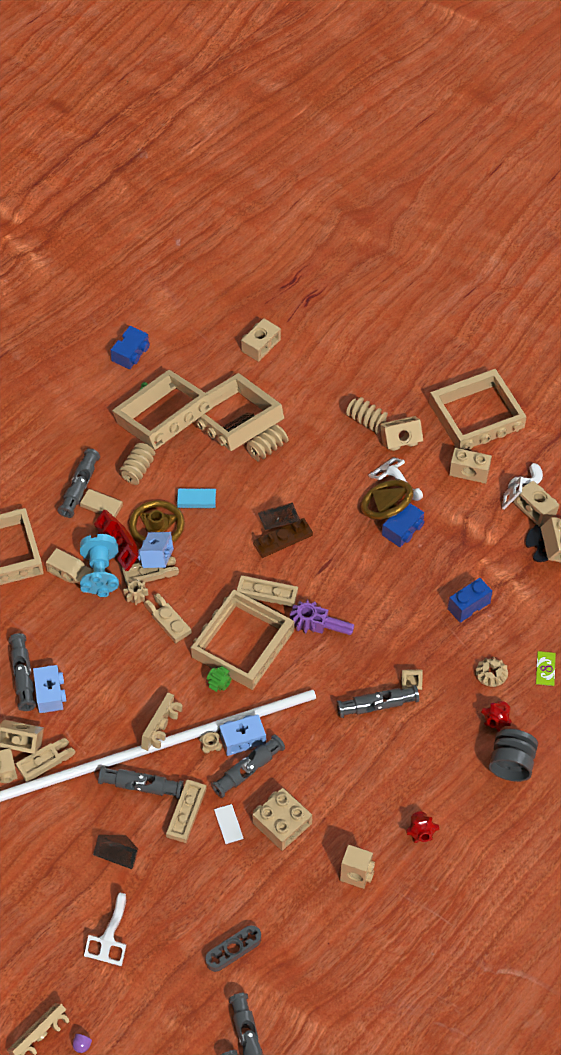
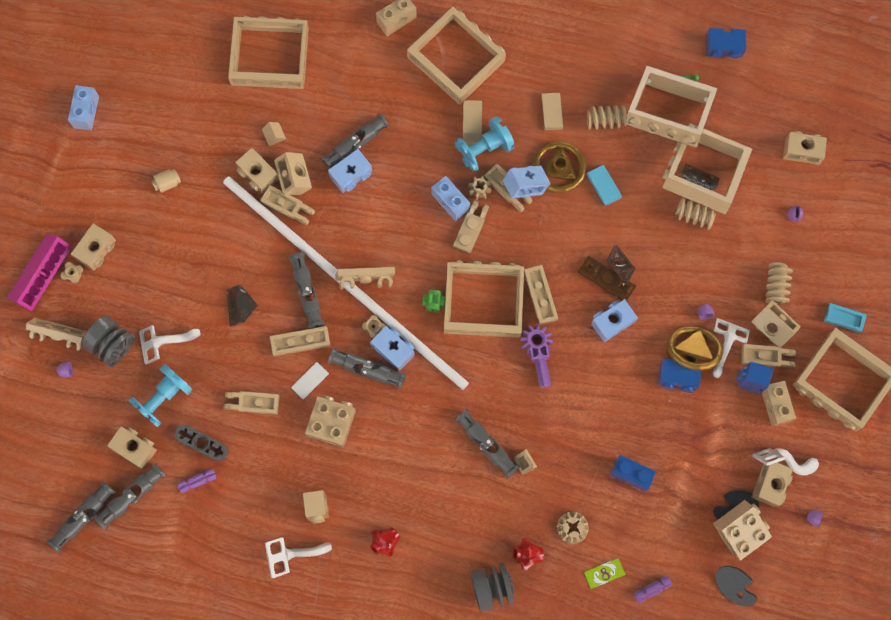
camera: 60 degrees right, 20 degrees up
(78, 484) = (550, 83): dark grey piece -> none
(81, 980) = (108, 341): none -> dark grey wheel
(127, 547) = (530, 133): red slope -> none
(131, 619) = (450, 198): none -> light blue brick
(160, 941) = (166, 389): none -> medium azure piece
(195, 1024) = (121, 442): none -> tan brick
(221, 881) = (254, 402): none -> tan hinge
(268, 970) = (196, 480): none -> medium lavender axle
(311, 377) = (792, 212): none -> medium lavender hinge
(324, 558) = (622, 312): none -> light blue brick
(358, 479) = (705, 311): none -> medium lavender hinge
(387, 920) = (286, 554): none -> white piece
(423, 386) = (845, 318): none -> medium azure tile
(423, 455) = (766, 355): none -> tan hinge
(439, 468) = (754, 377): none -> blue brick

